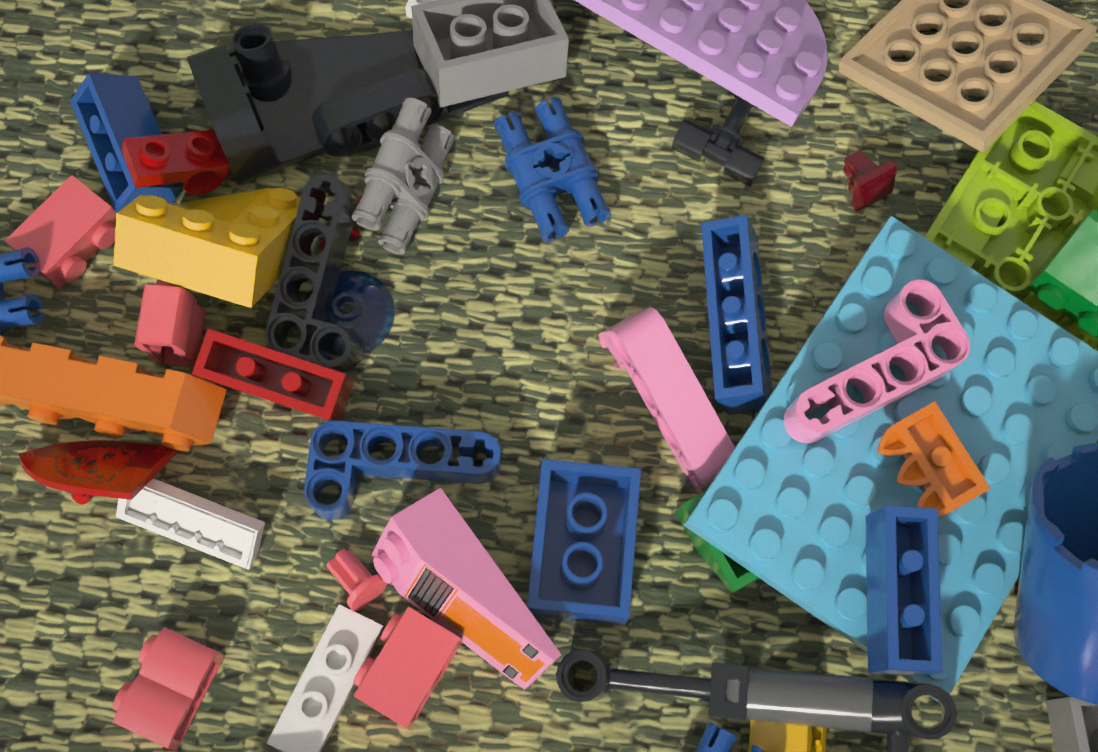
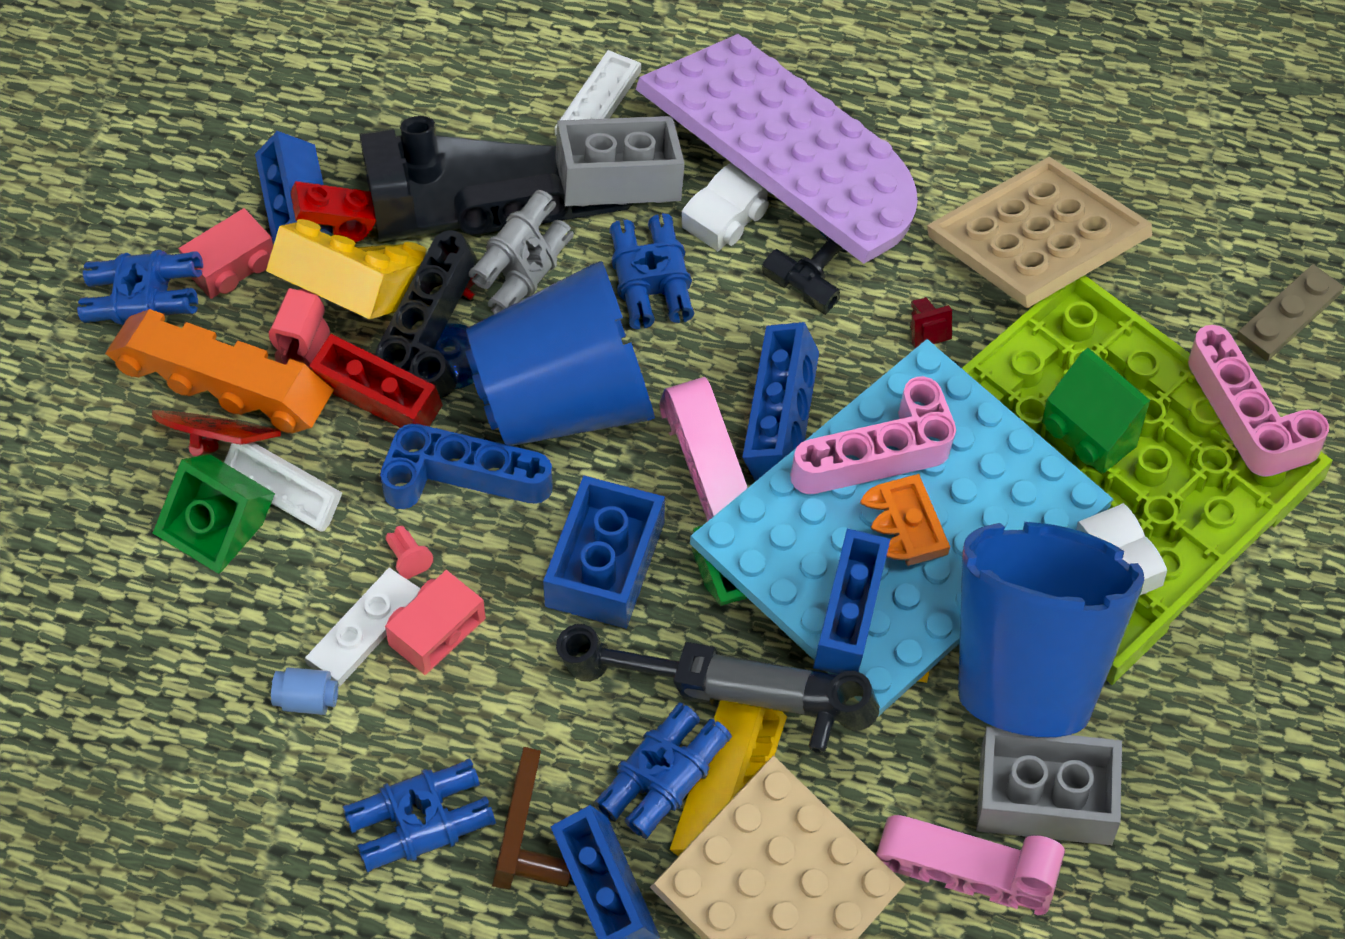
camera: 15 degrees right, 15 degrees down
(117, 571) = (212, 511): none -> green slope
(167, 689) = (234, 602): coral brick -> none
(456, 583) = (485, 550): bright pink slope -> none
(483, 321) = (558, 363): none -> blue cone
(615, 76) = (725, 208): none -> white brick

